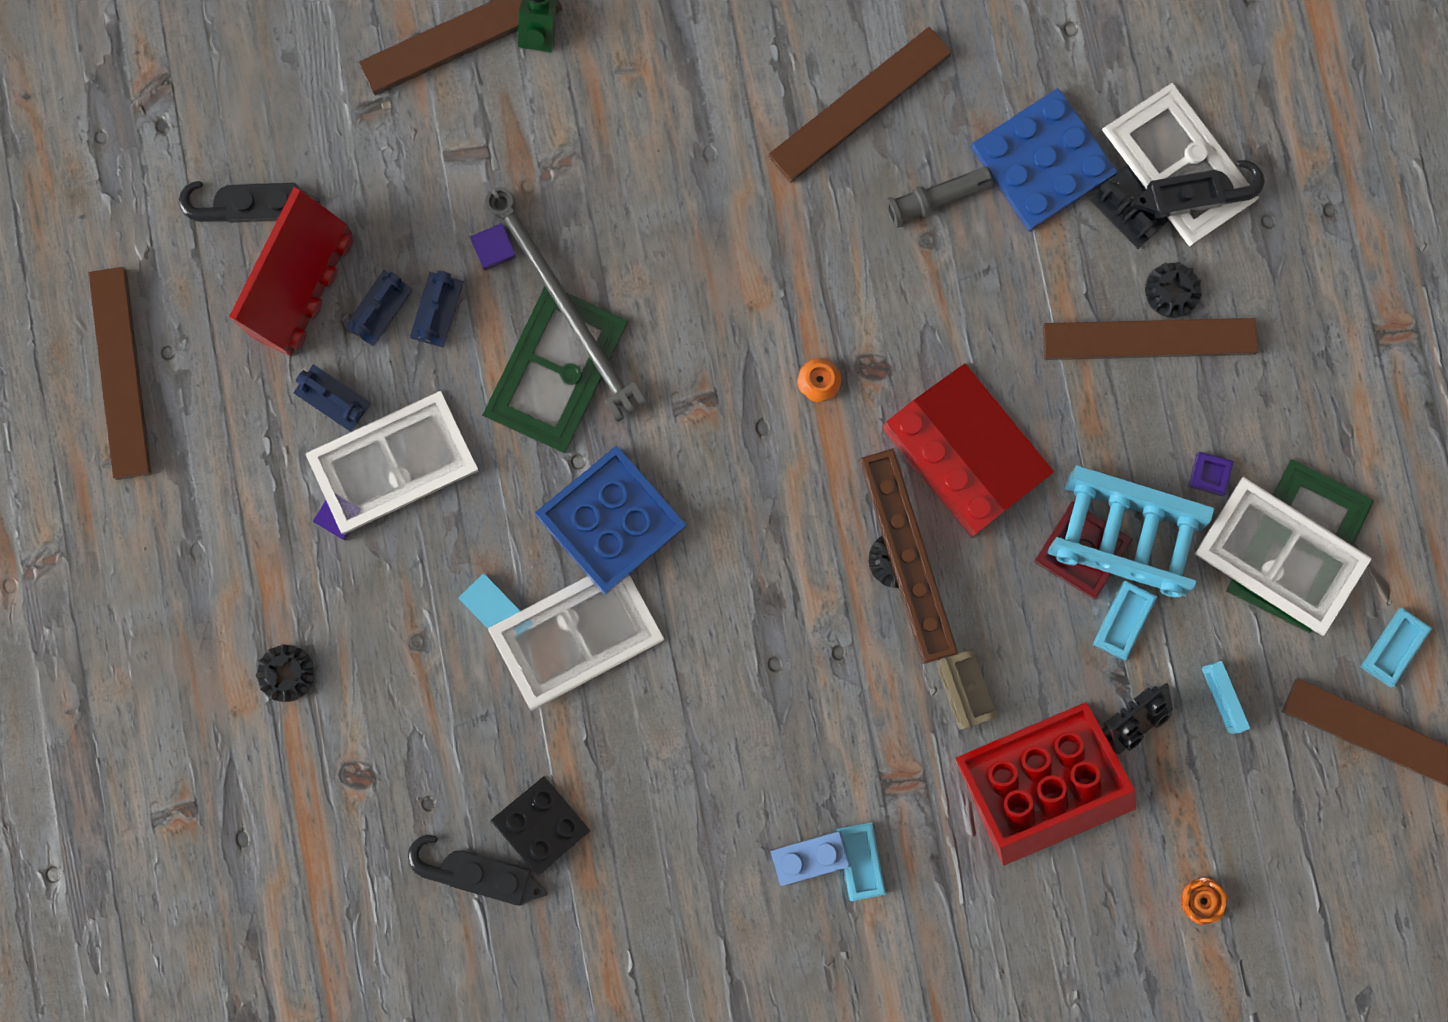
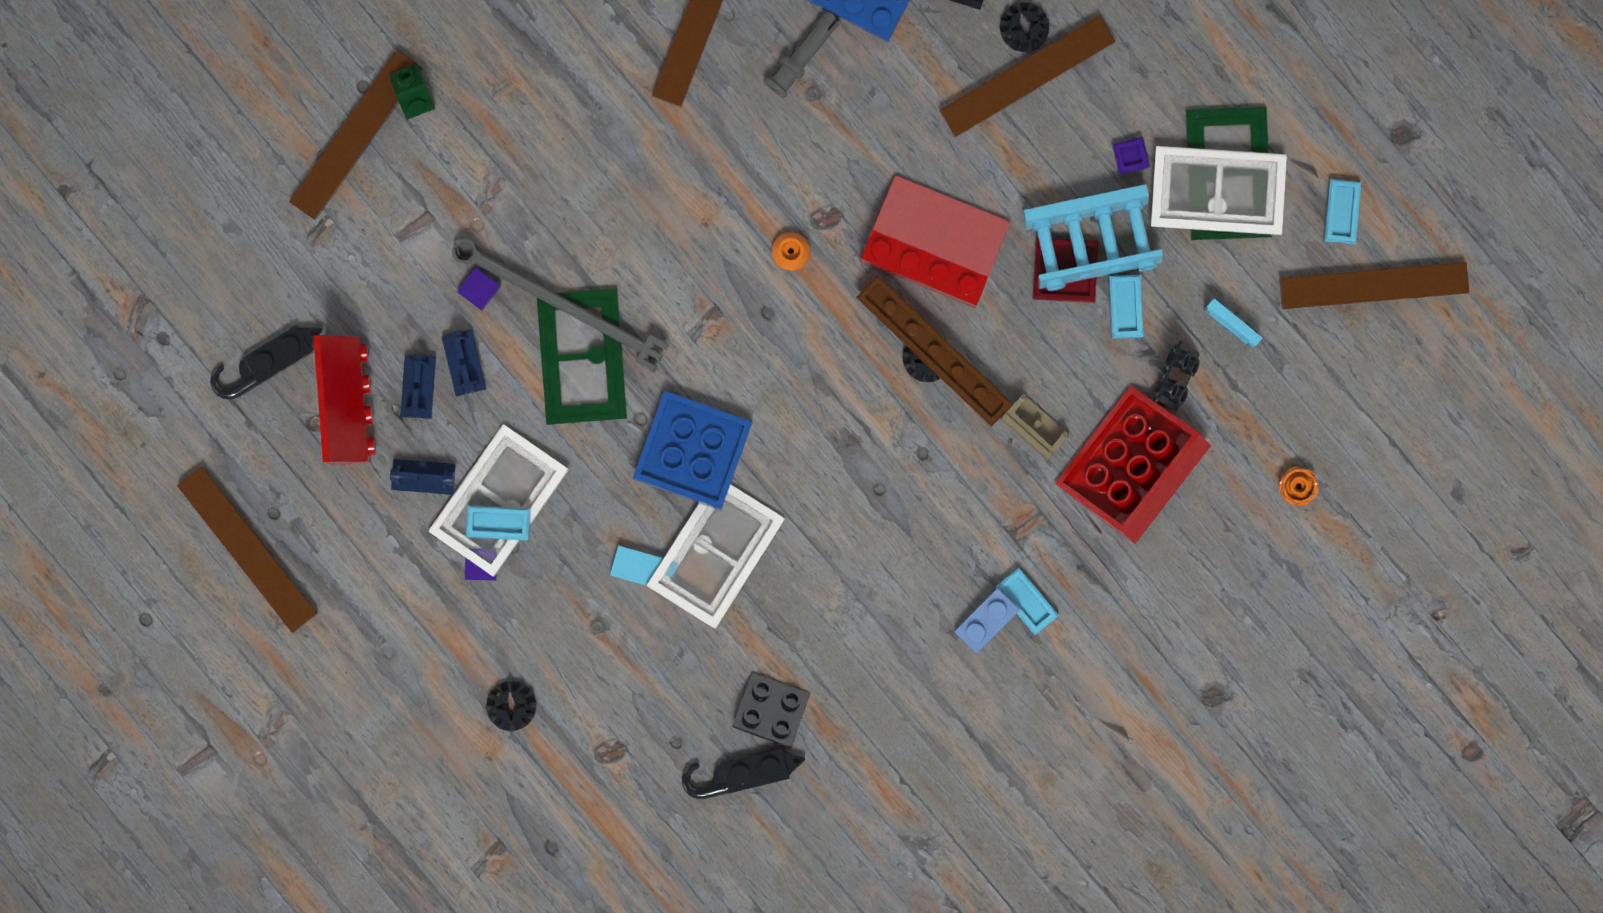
camera: 30 degrees left, 5 degrees up
(377, 483) = (498, 523): none -> medium azure tile

